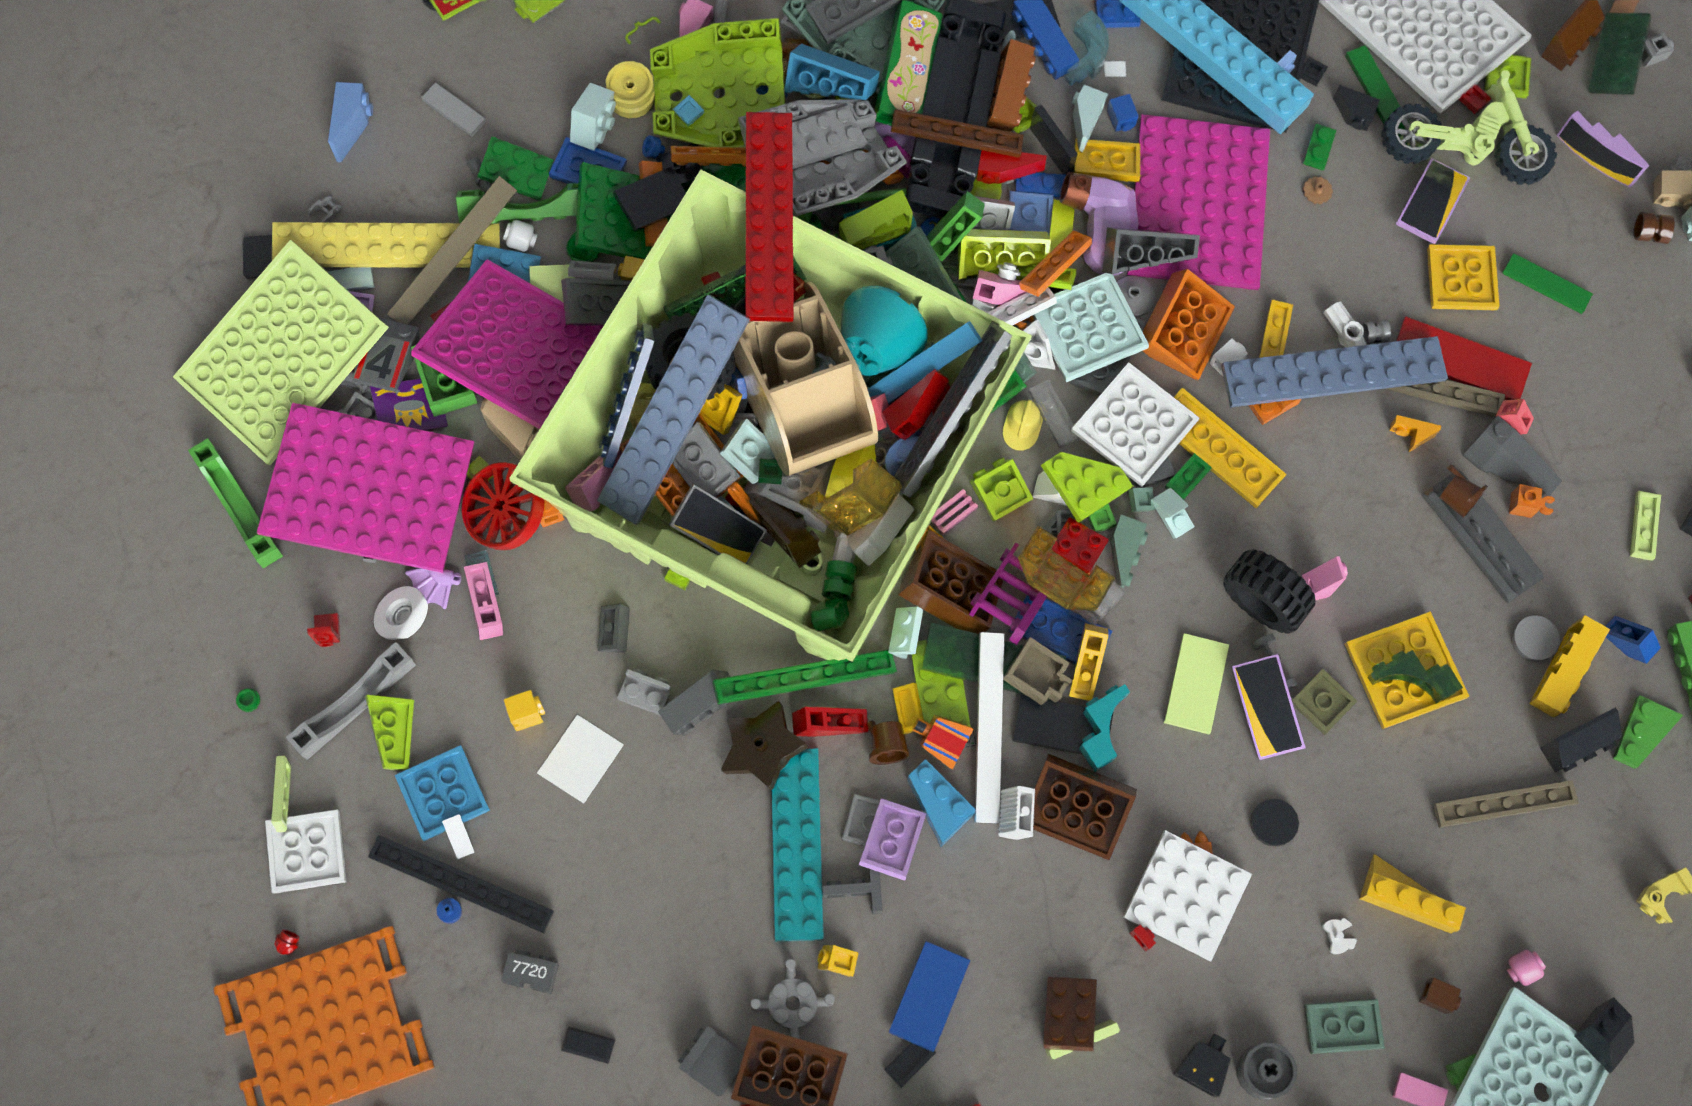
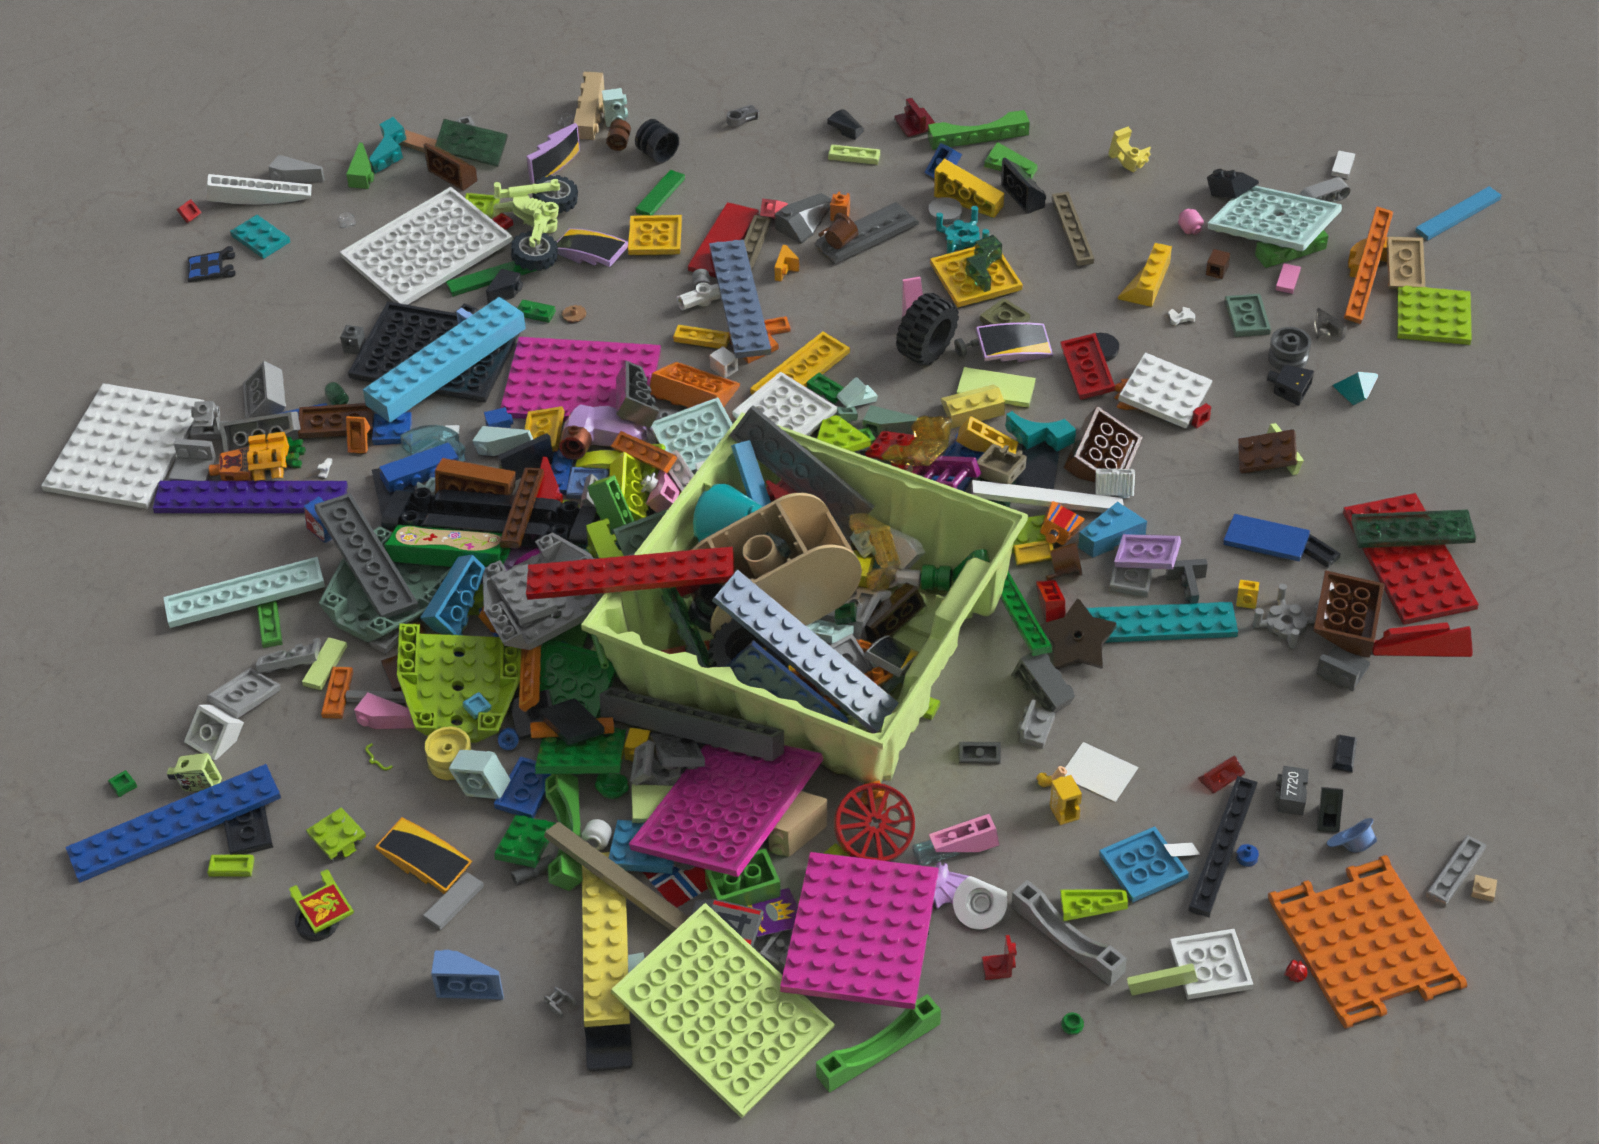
camera: 85 degrees left, 25 degrees down
(458, 1031) = (1355, 838): none -> medium blue piece
(496, 1011) = (1329, 809): none -> black slope
(506, 76) = (423, 855): none -> black slope
(565, 704) = (1046, 781): none -> arm
(565, 895) = (1222, 774): none -> clear red slope
(1157, 649) = (979, 403): none -> light yellow slope
(1229, 798) = (1087, 366): none -> red plate
(1303, 420) = (778, 325): none -> orange tile
(1495, 648) = (968, 230): none -> teal plate
(1639, 271) = (657, 140): none -> black wheel

